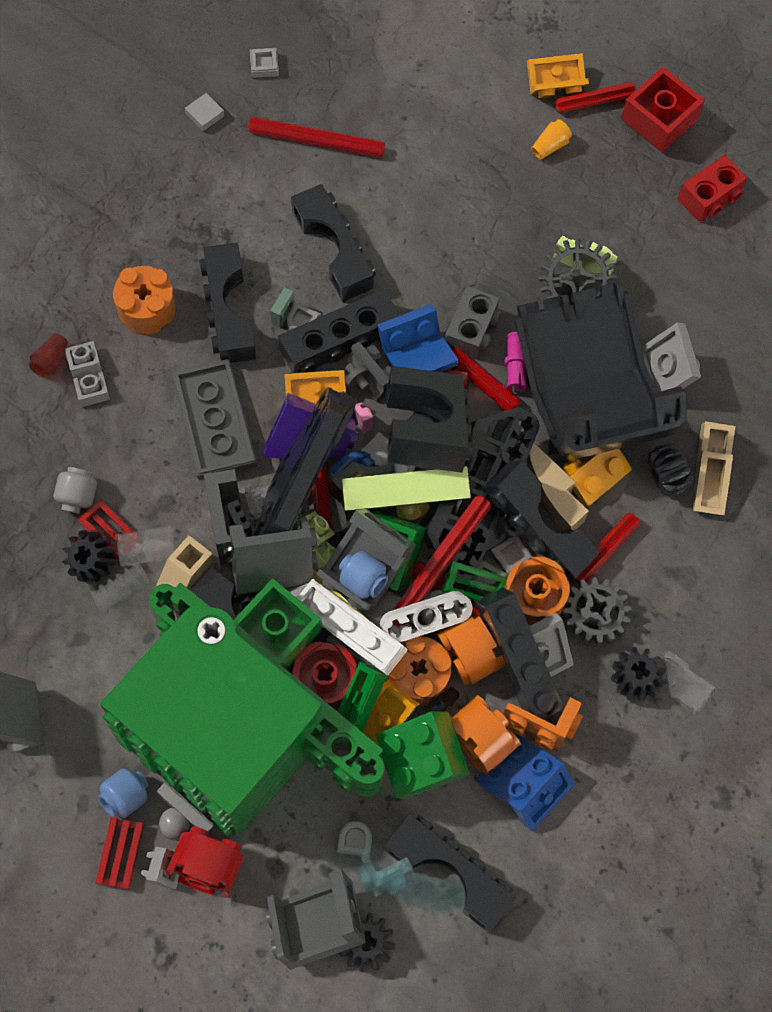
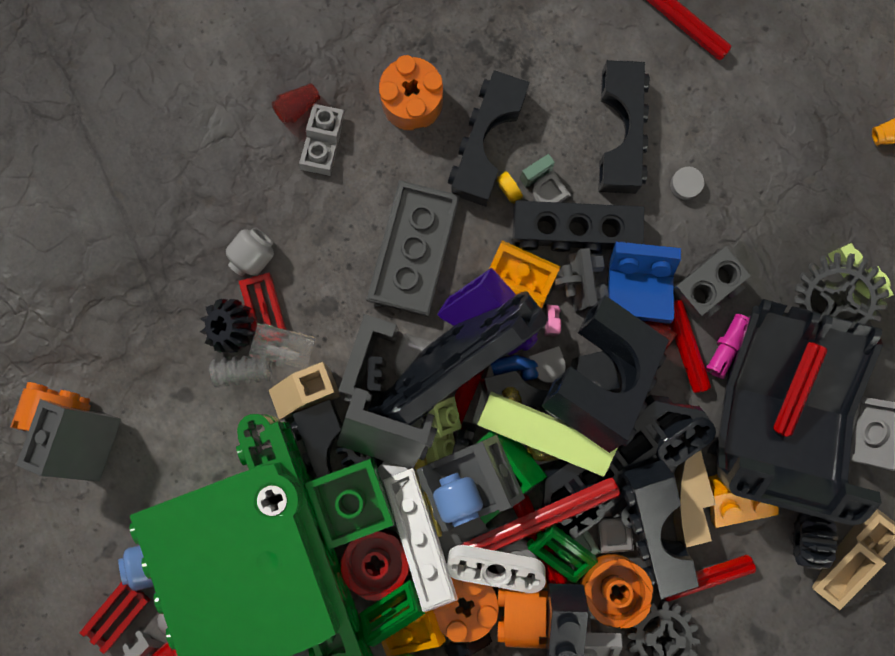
camera: 30 degrees right, 15 degrees up
(266, 331) = (509, 187): none -> yellow tile
(409, 259) = (687, 183): none -> light grey tile
(588, 361) = (800, 389): none -> red axle

